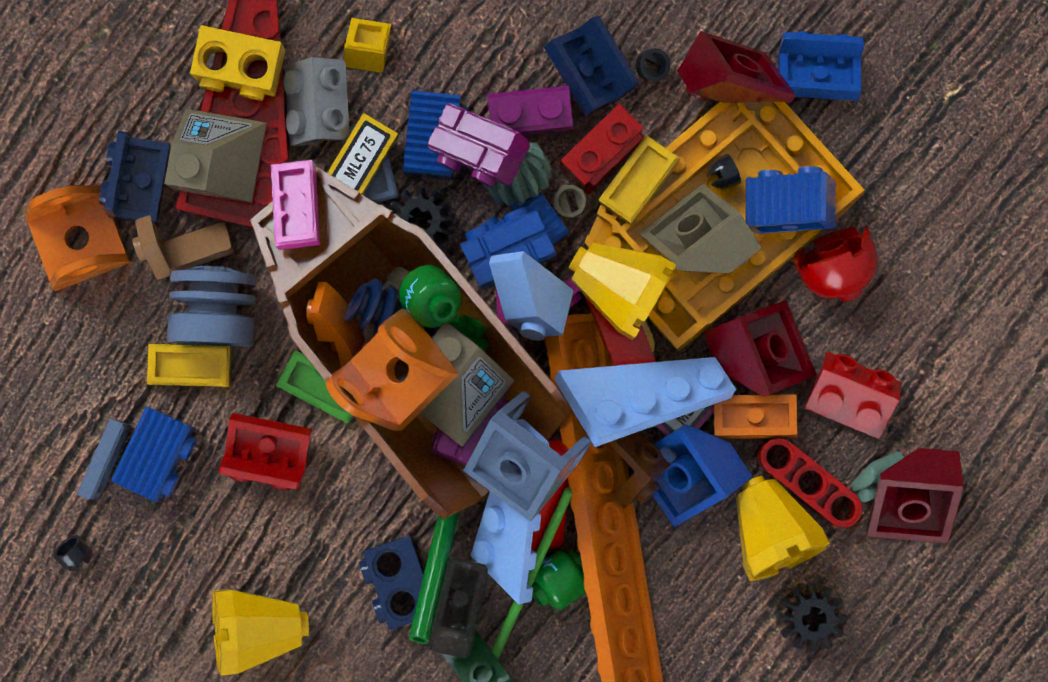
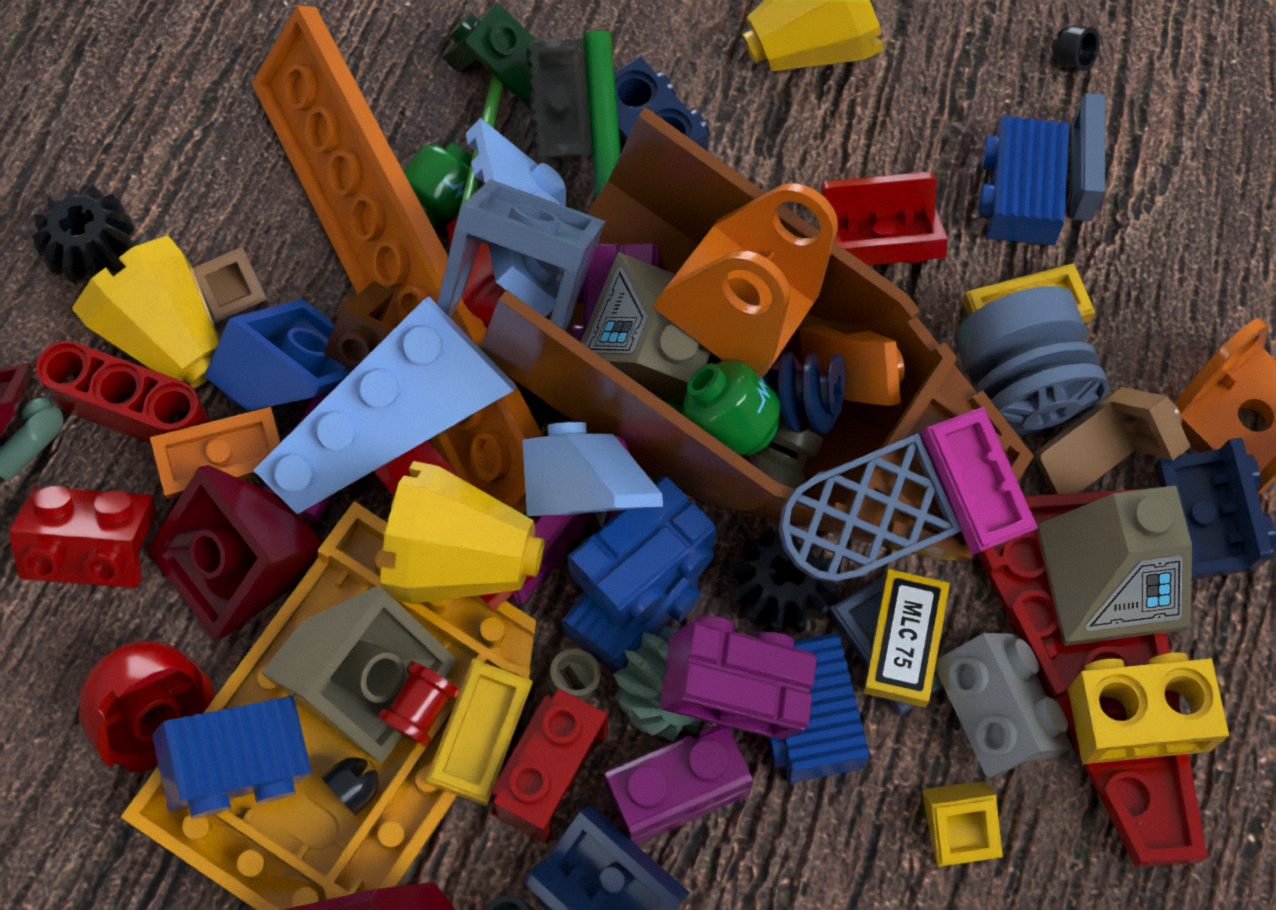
camera: 165 degrees right, 20 degrees down
(327, 238) = (931, 483): none -> sand blue window
(671, 202) = (418, 703): none -> red bush
(722, 556) = (229, 284): none -> medium nougat slope

